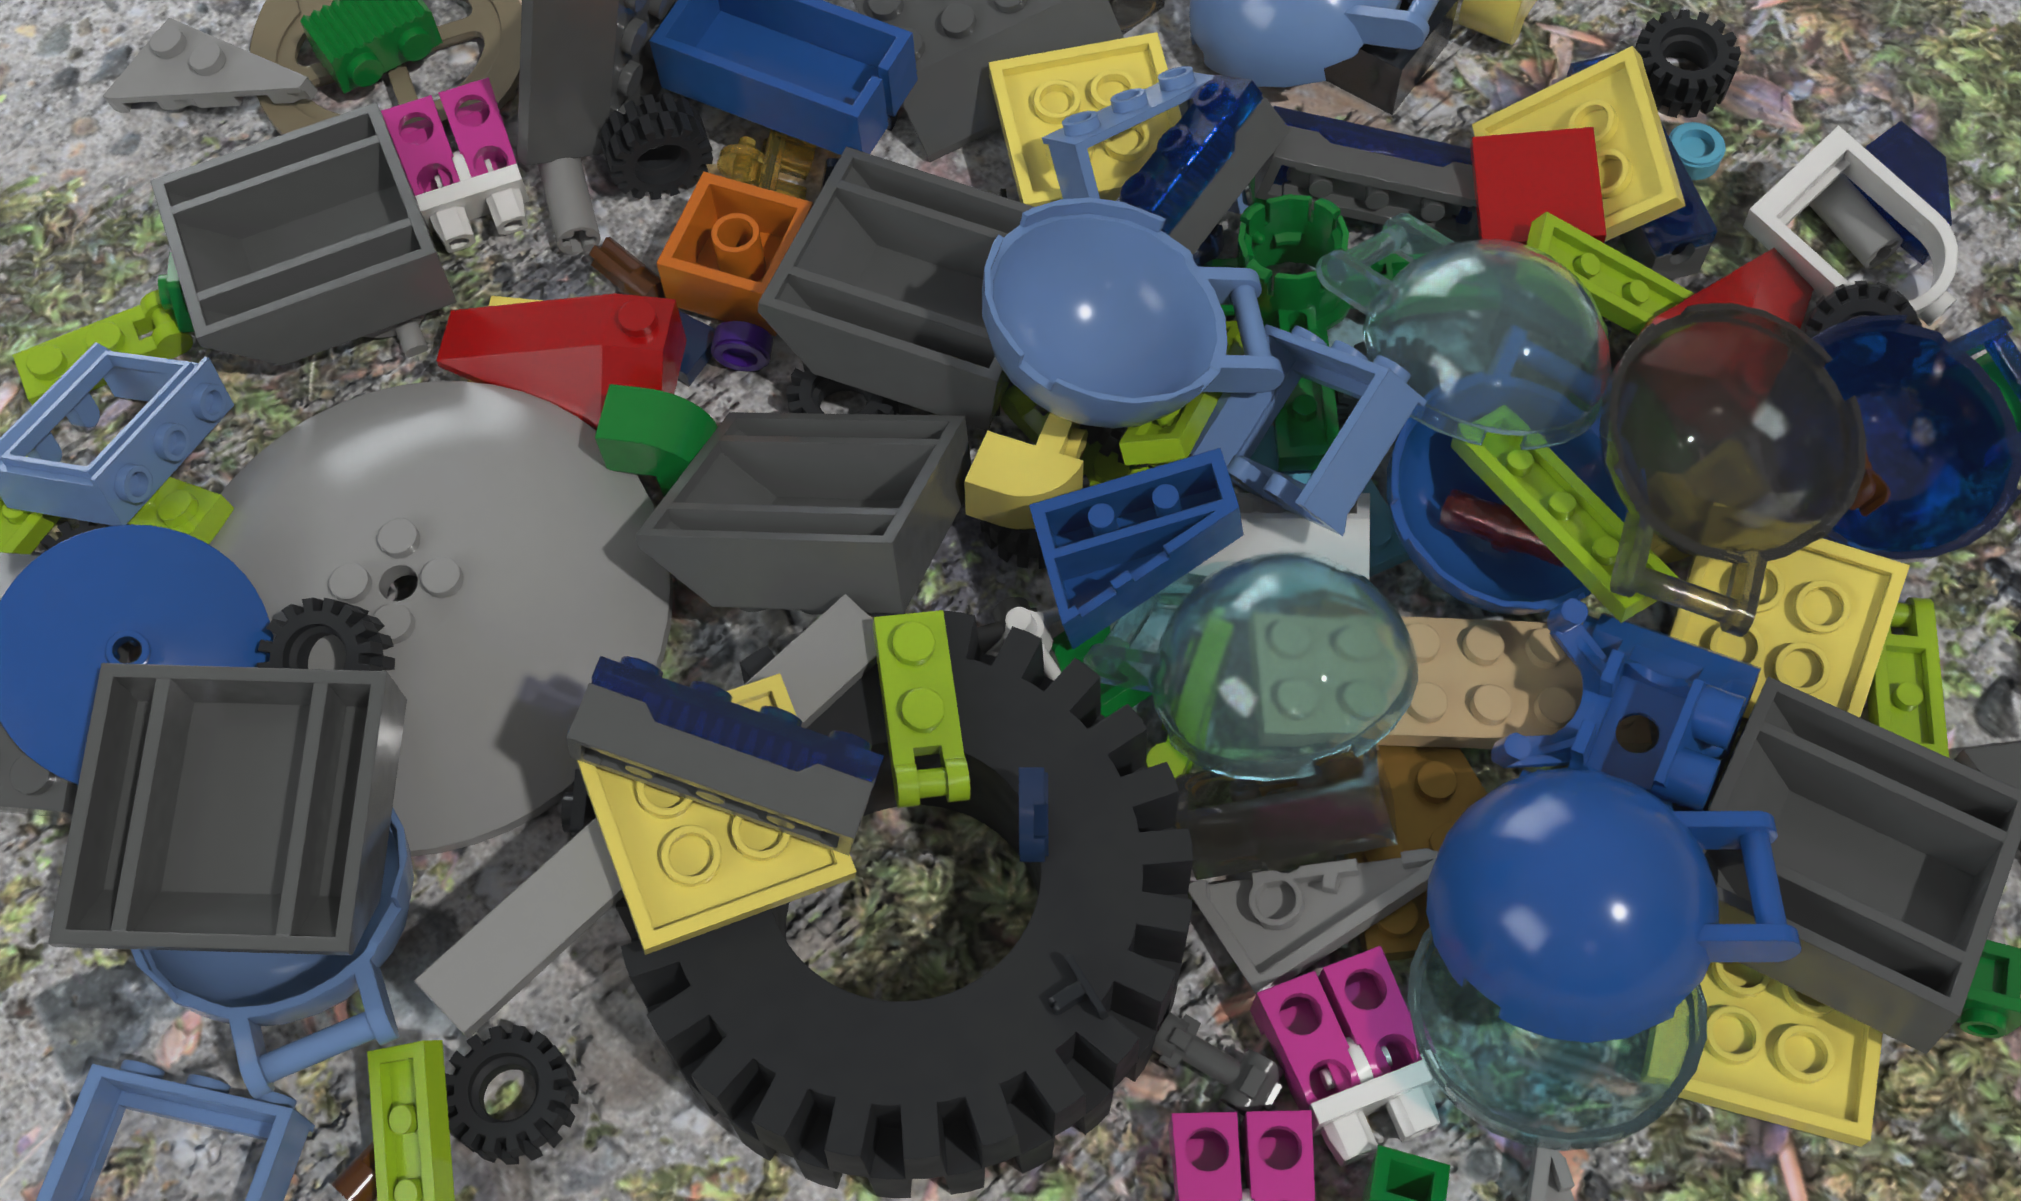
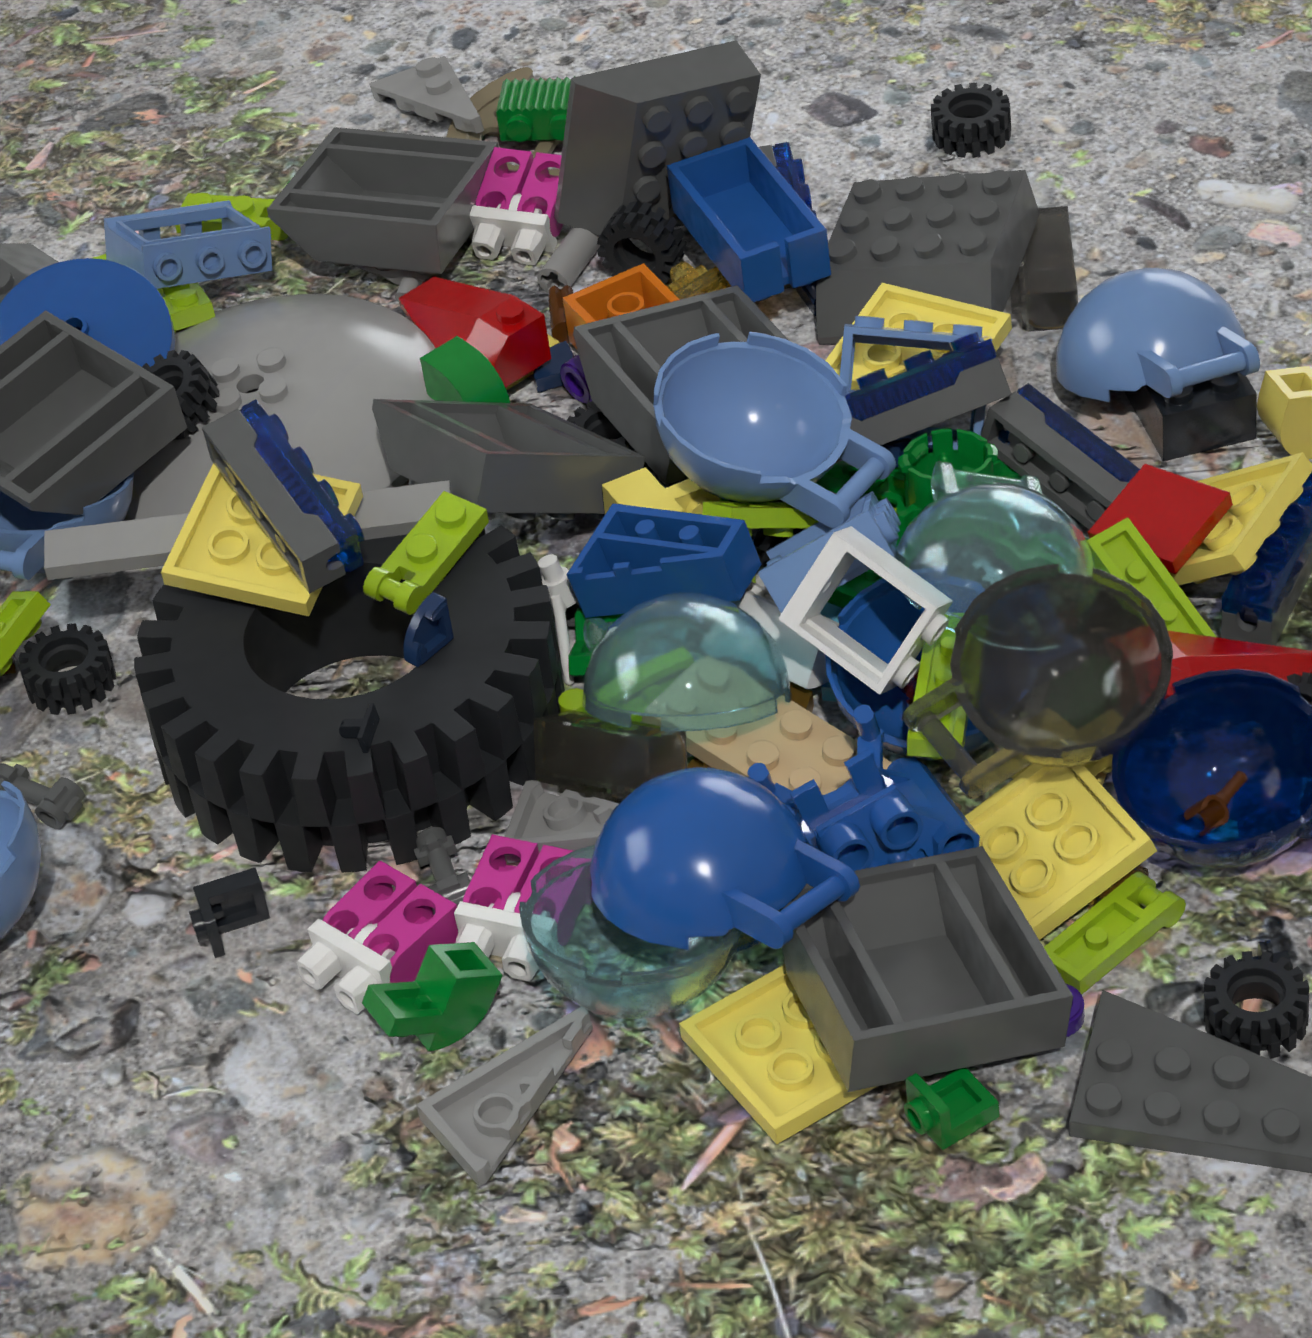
camera: 45 degrees right, 20 degrees down
(1401, 467) = (820, 582): none -> white window

